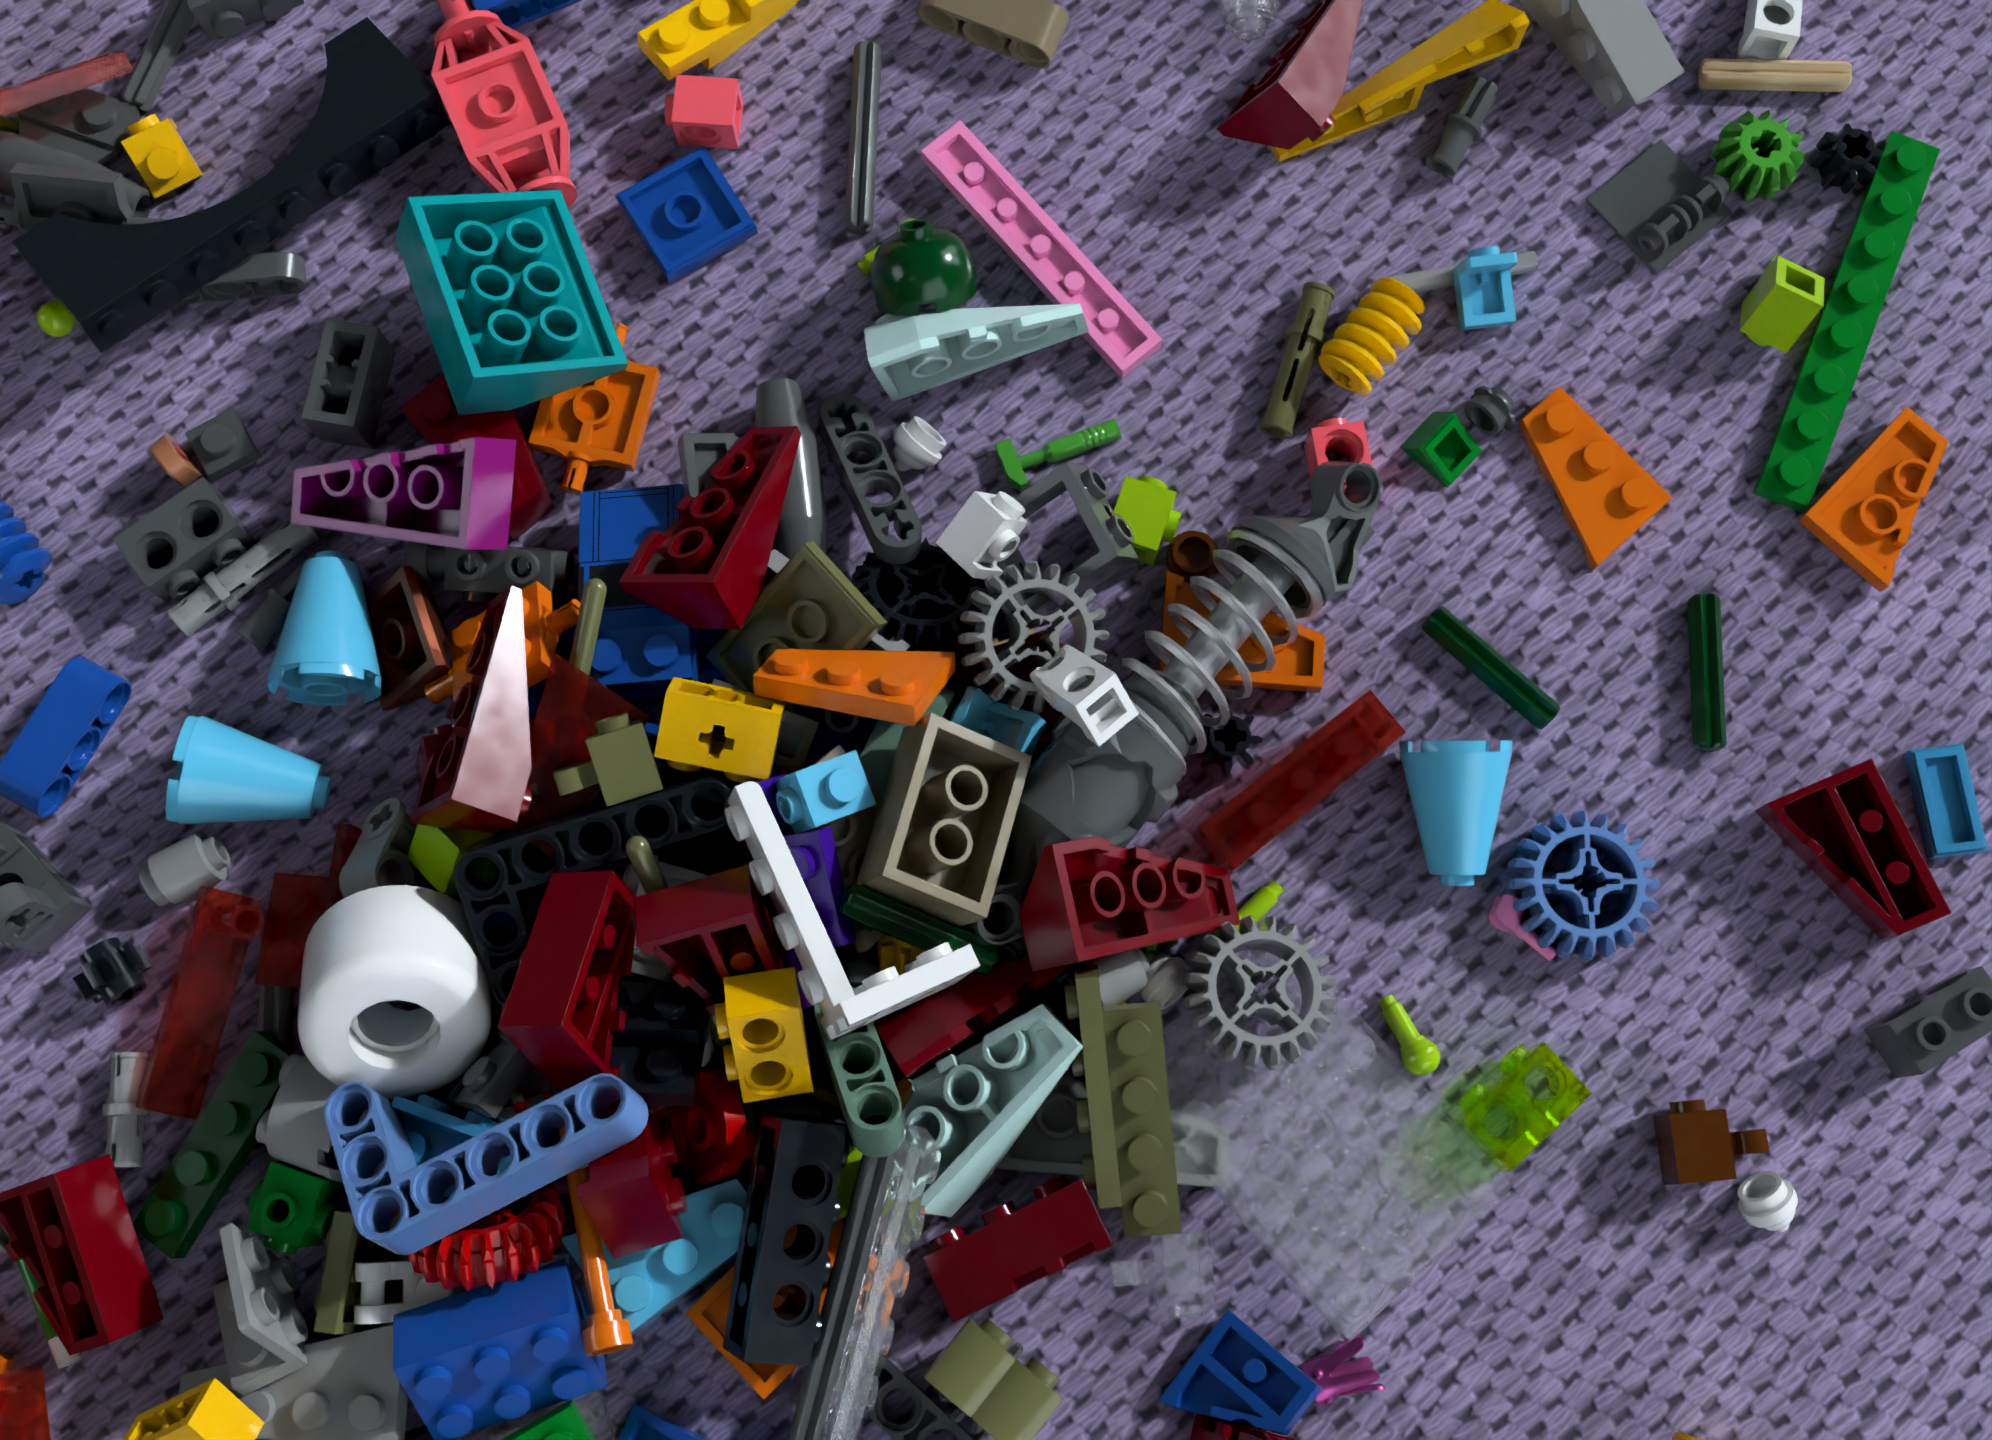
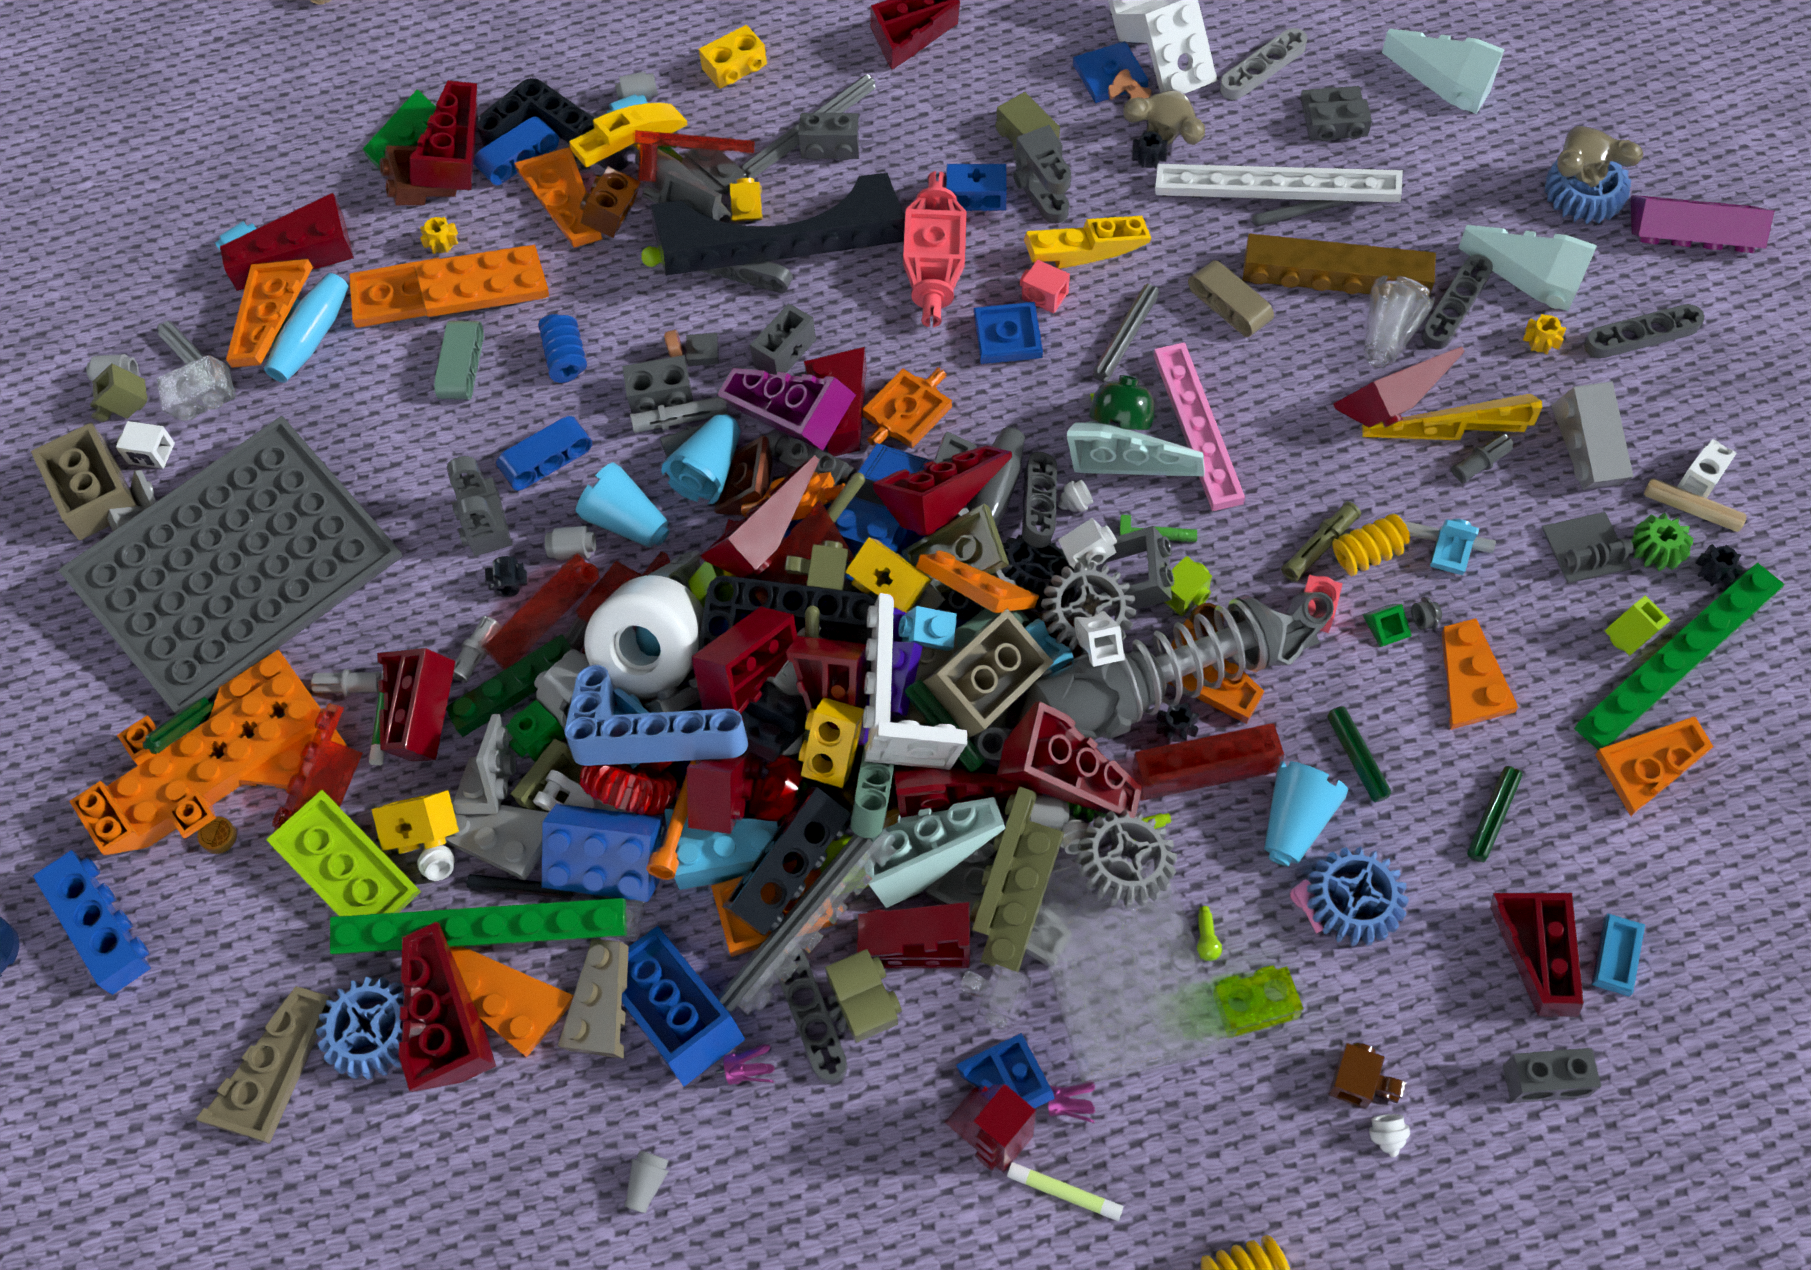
camera: 30 degrees right, 15 degrees down
(507, 297) = (888, 327): teal slope -> none

